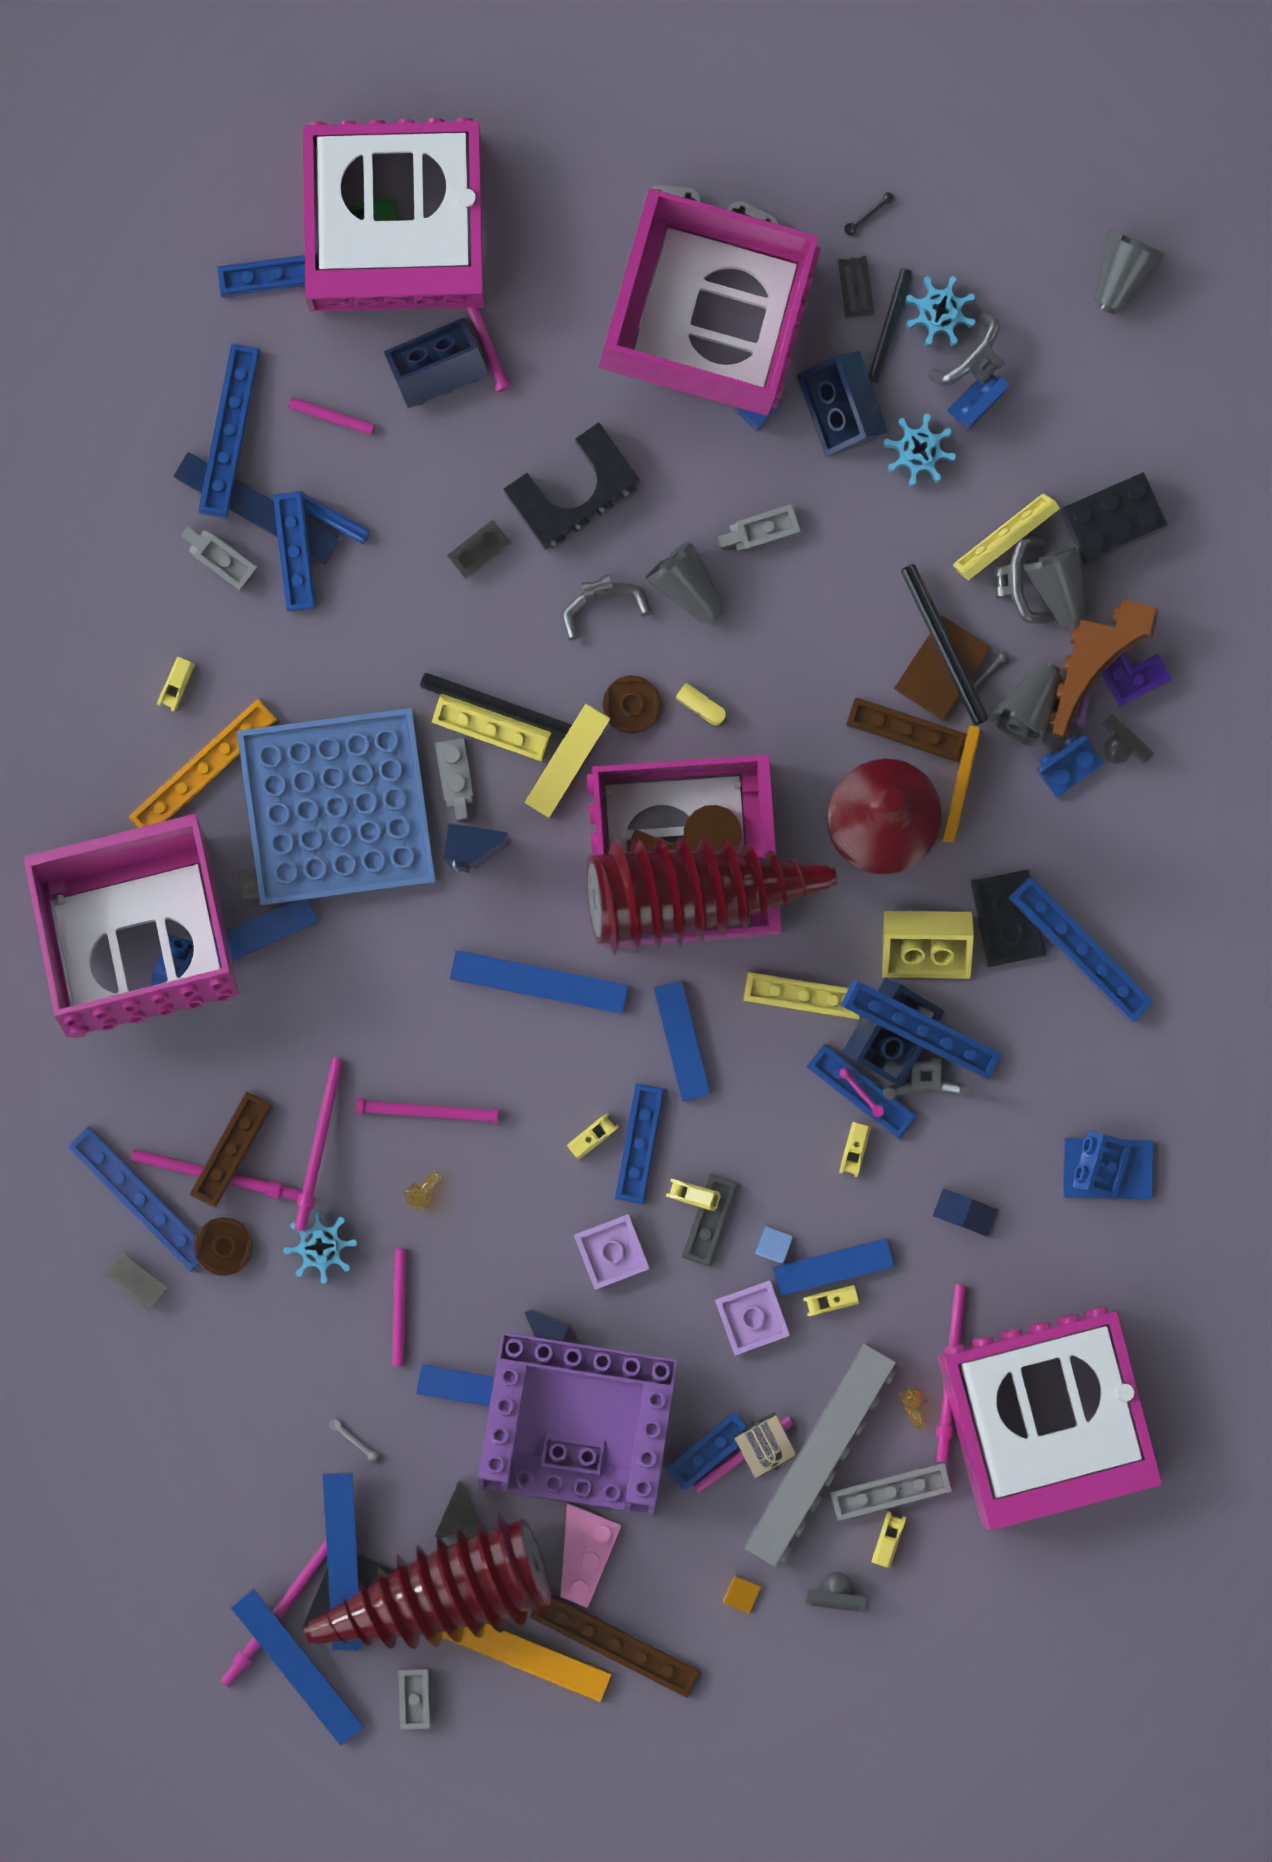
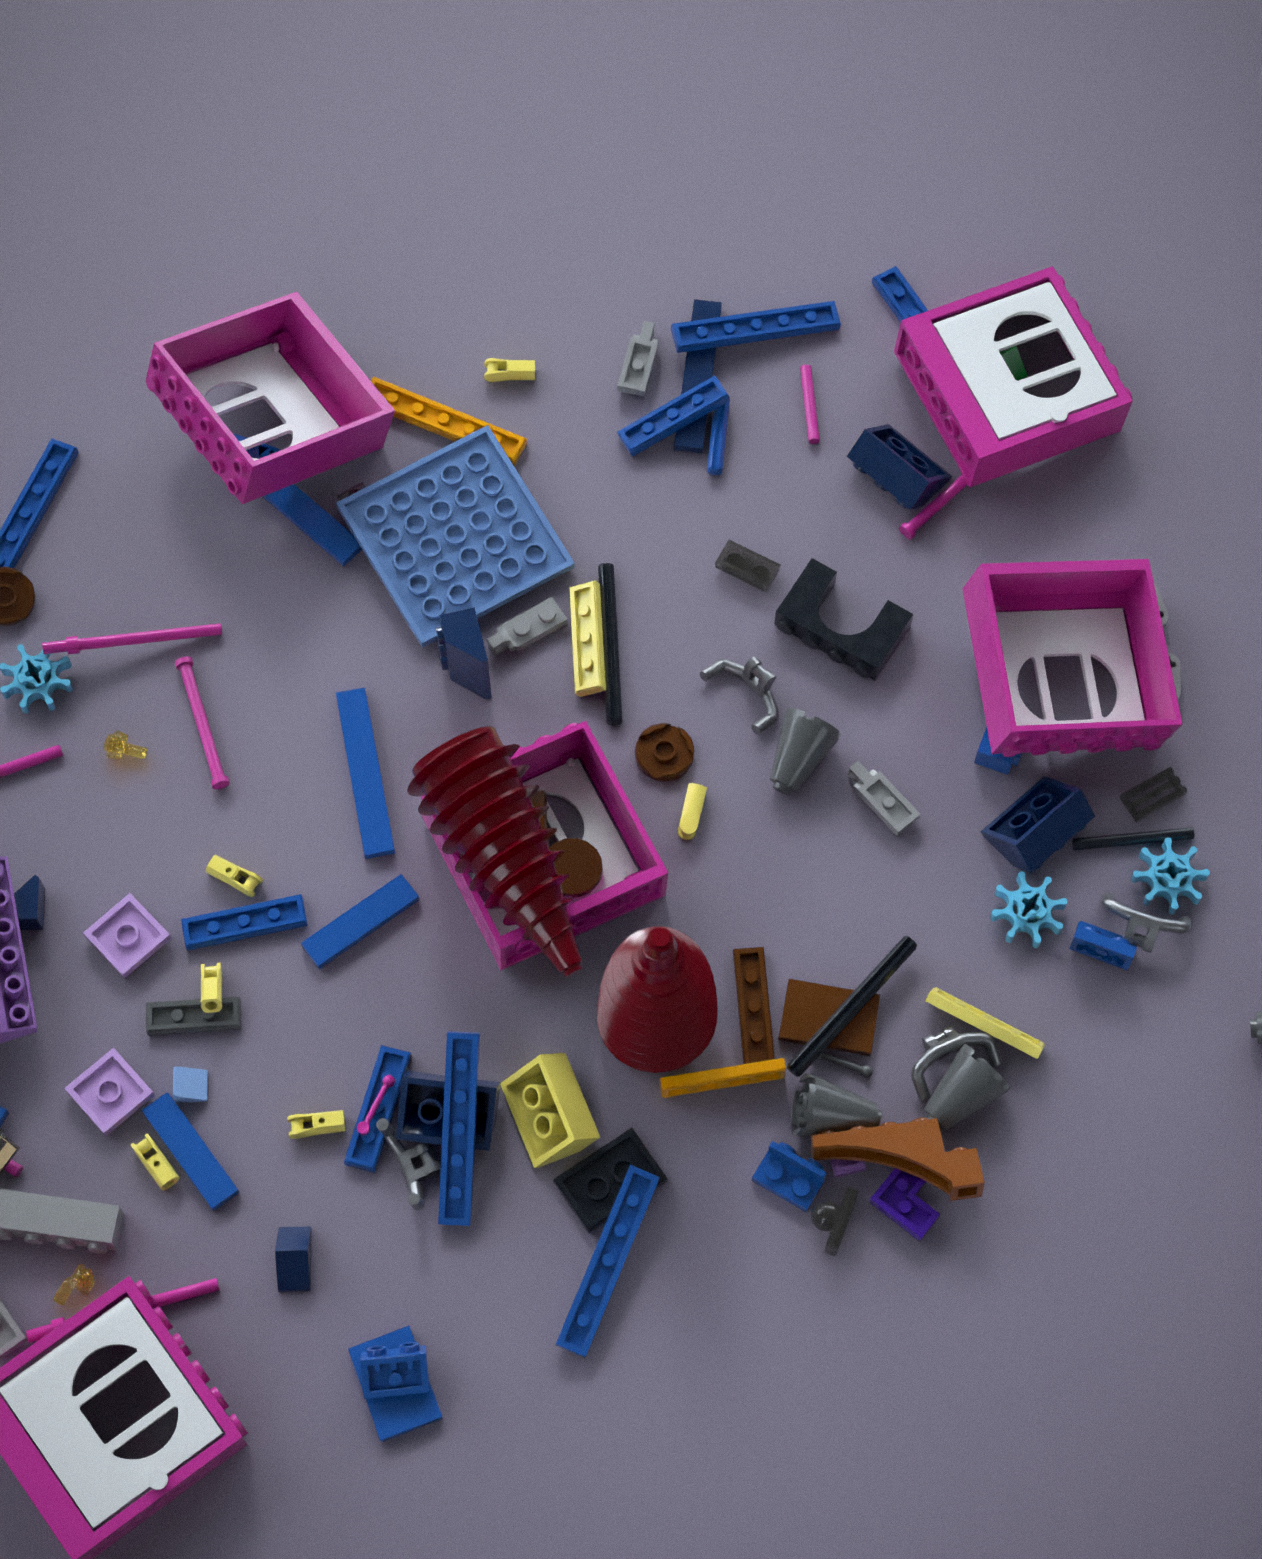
camera: 60 degrees right, 20 degrees down
(231, 1150) = (99, 569): reddish brown tile -> none
(273, 1189) = (76, 618): dark pink bar -> none
(567, 760) = (597, 712): light yellow tile -> none
(796, 995) = (446, 997): light yellow tile -> none
(849, 228) = (1205, 769): black hinge -> none
(1114, 518) = (1053, 1117): black brick -> none

